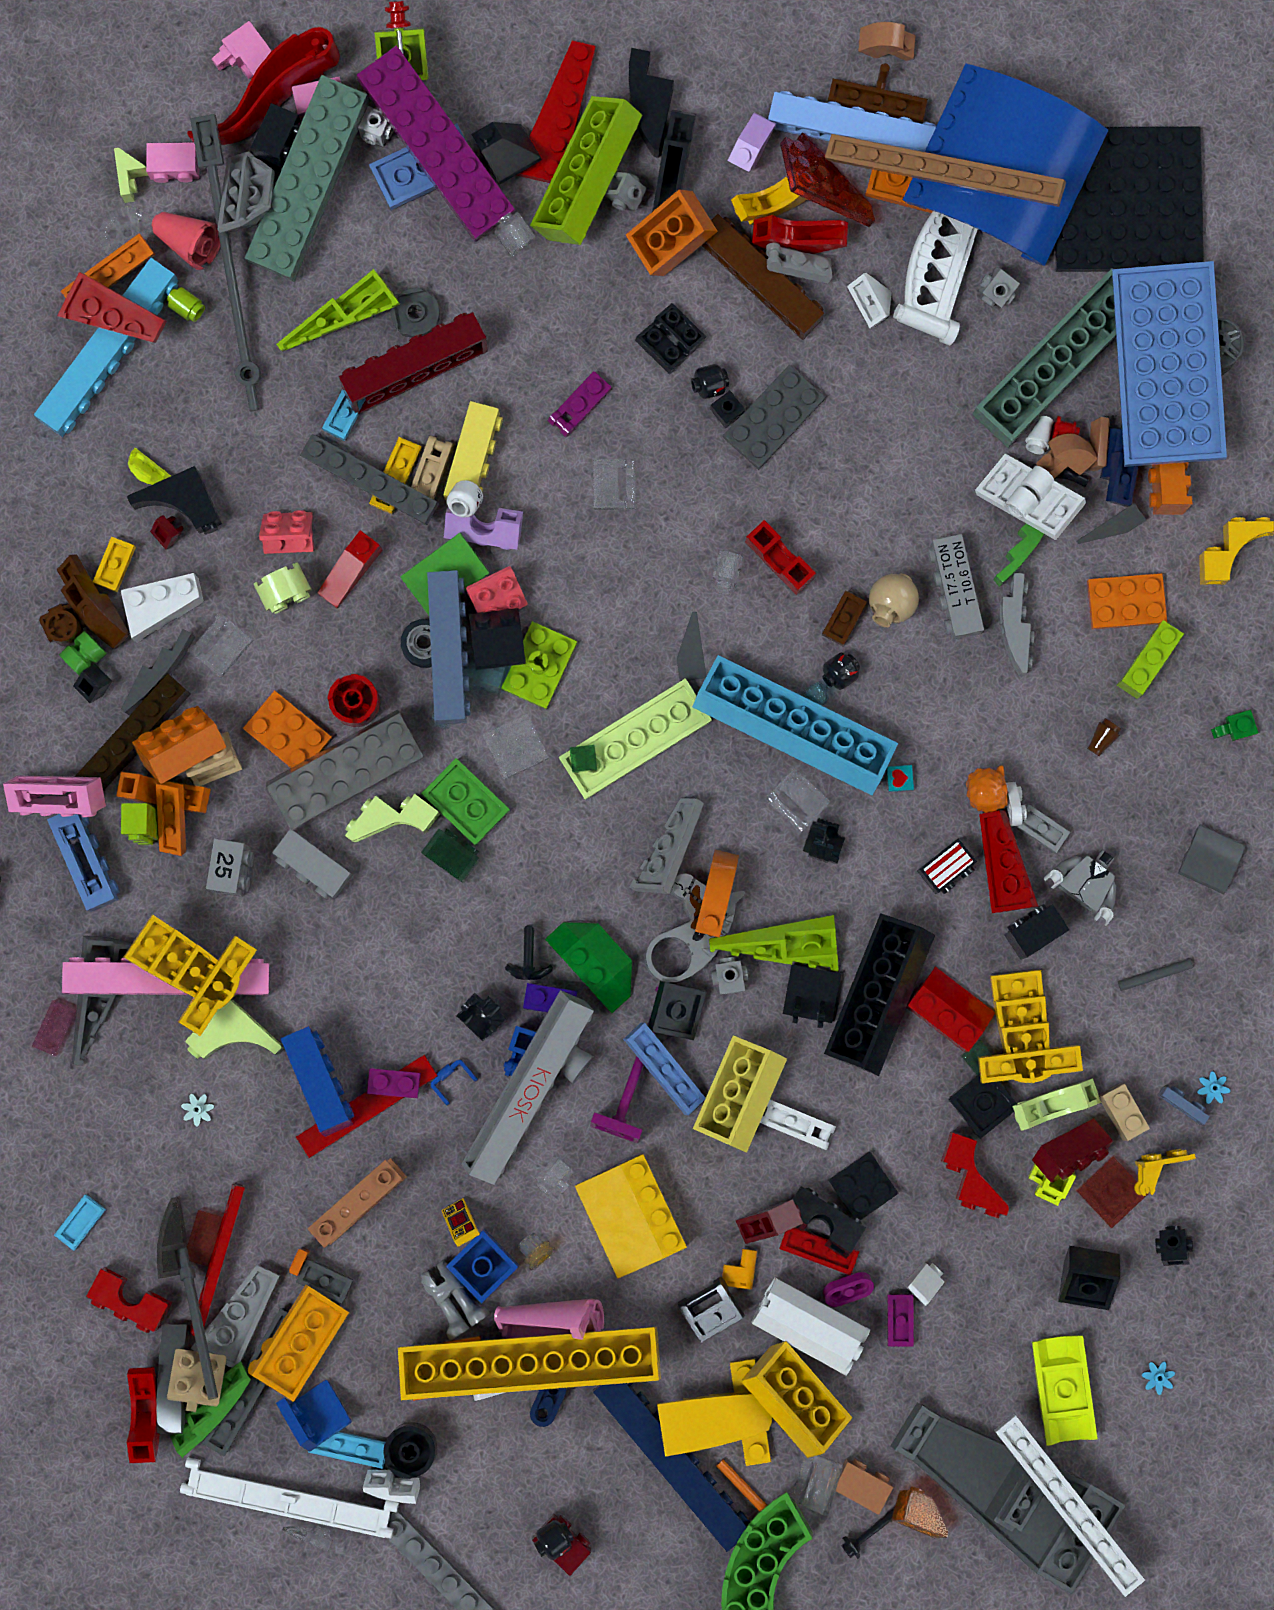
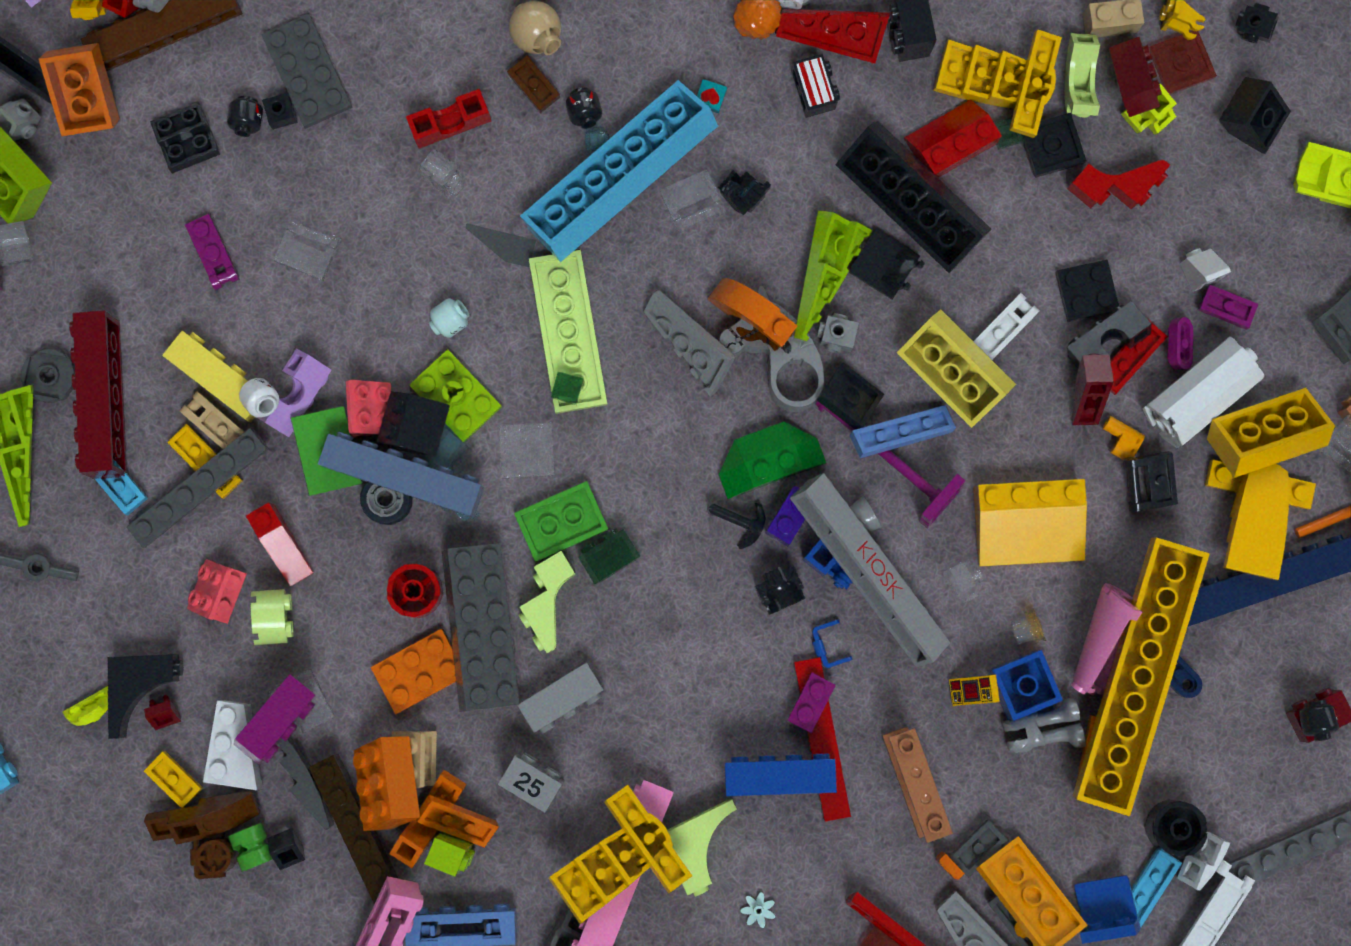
camera: 75 degrees left, 0 degrees up
(194, 629) = (275, 720): none -> magenta brick
(604, 631) = (449, 317): none -> light aqua head

